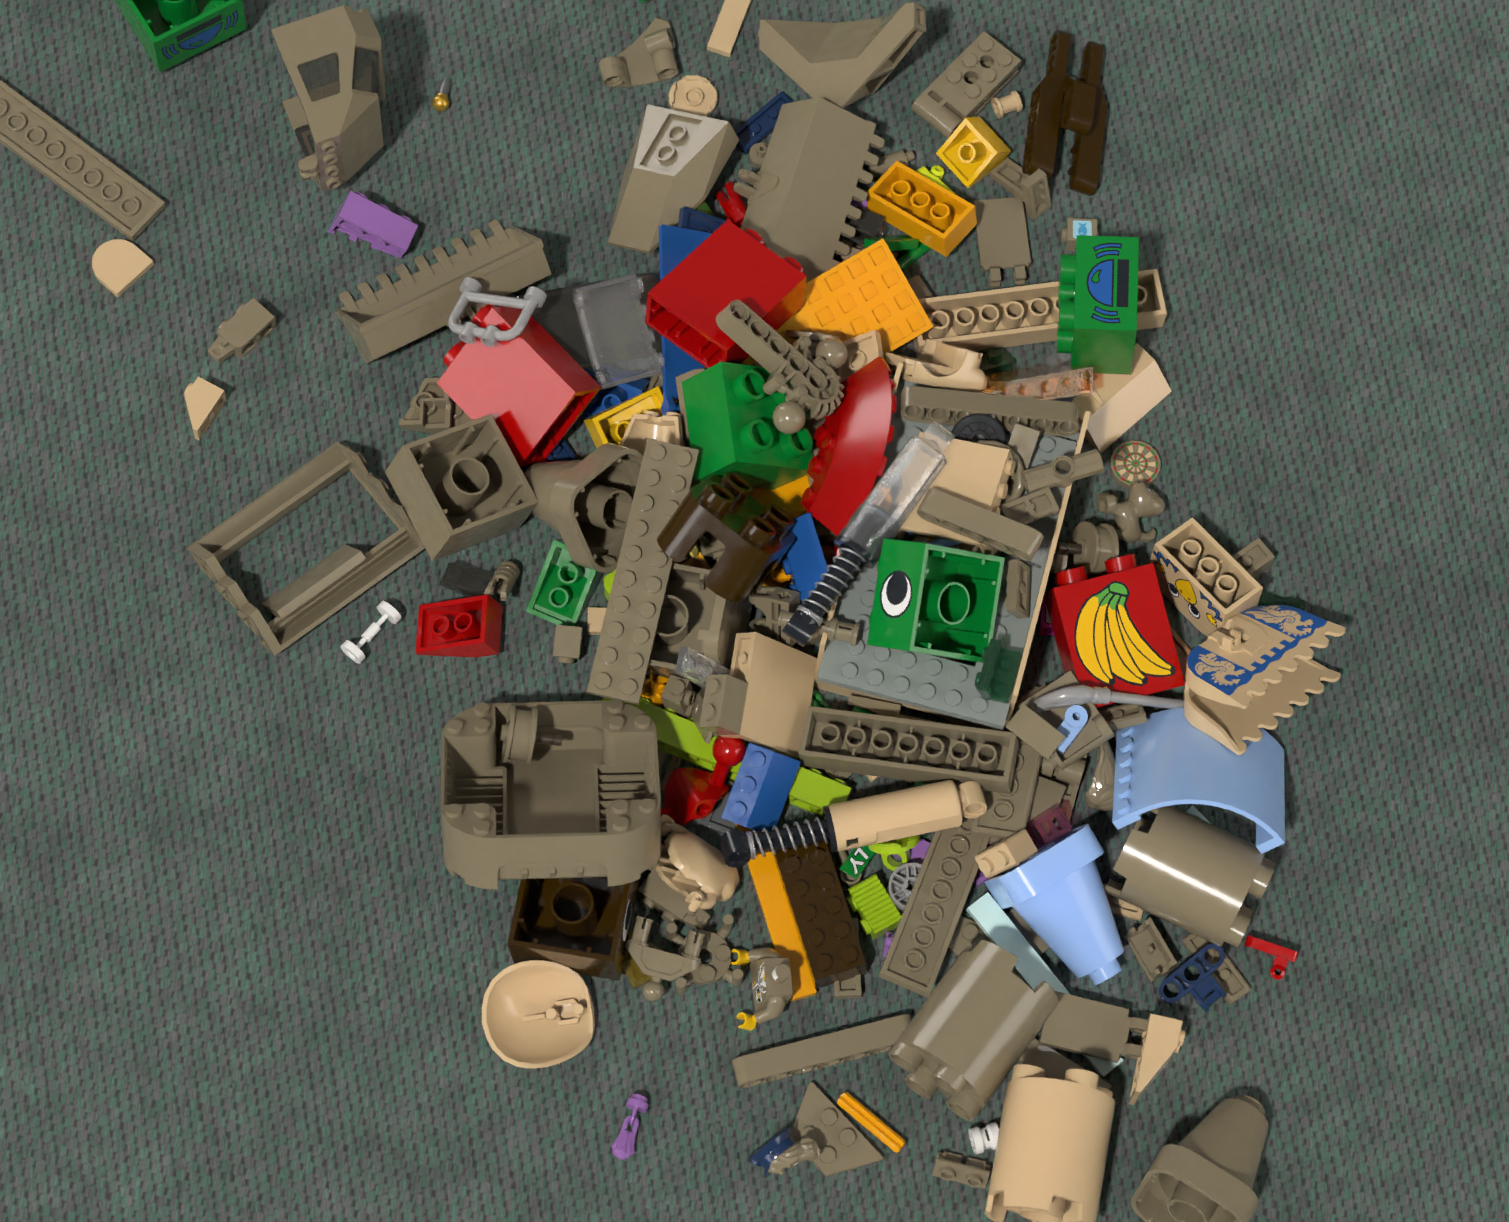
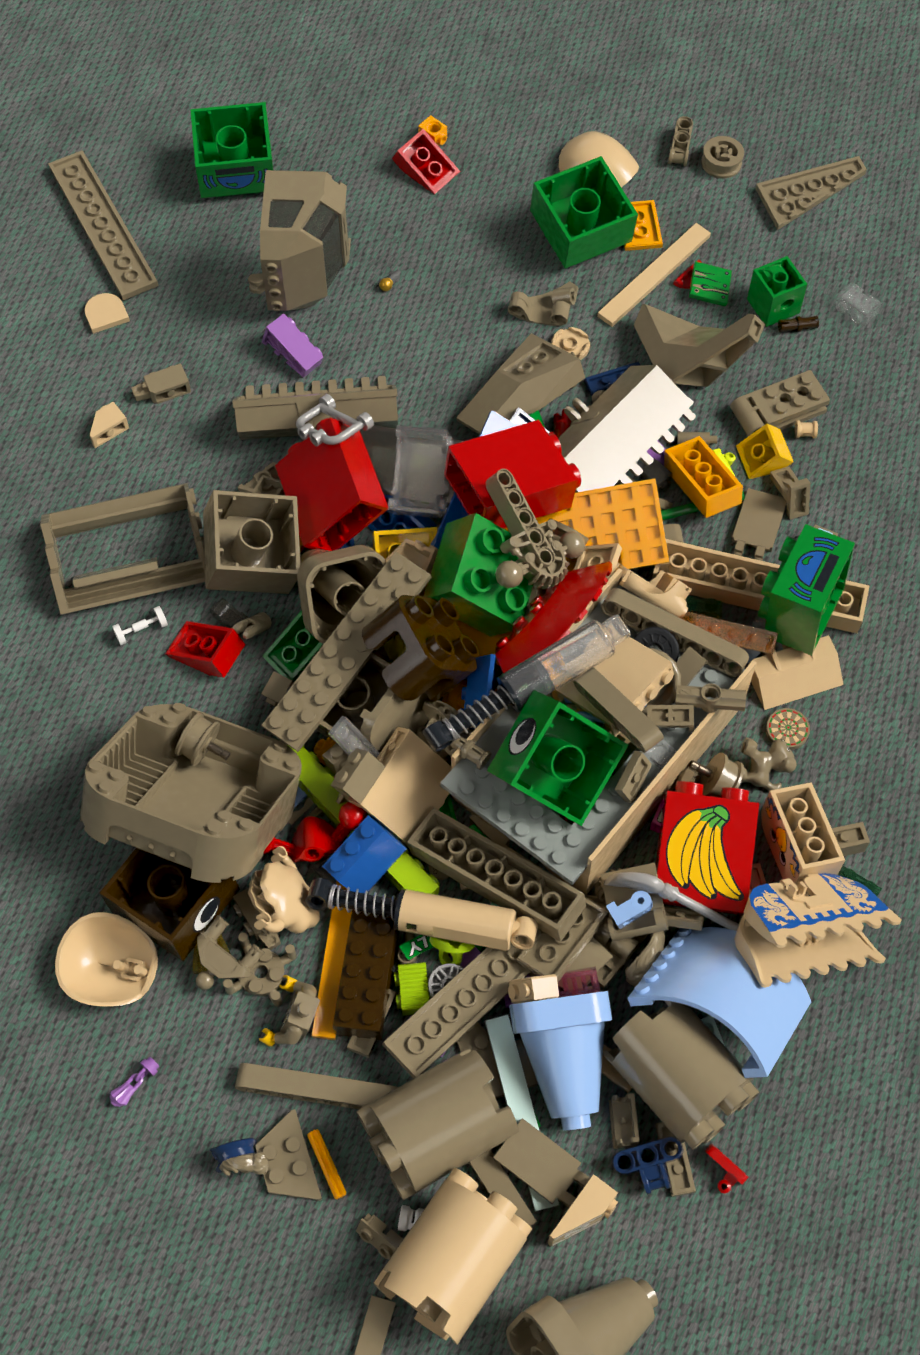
camera: 30 degrees right, 5 degrees down
(895, 243) = (673, 495): green tile -> none
(998, 672) = (584, 835): clear green bracket -> none
(1036, 732) = (599, 899): dark tan hinge -> none
(1082, 113) = (862, 451): dark brown beam -> none

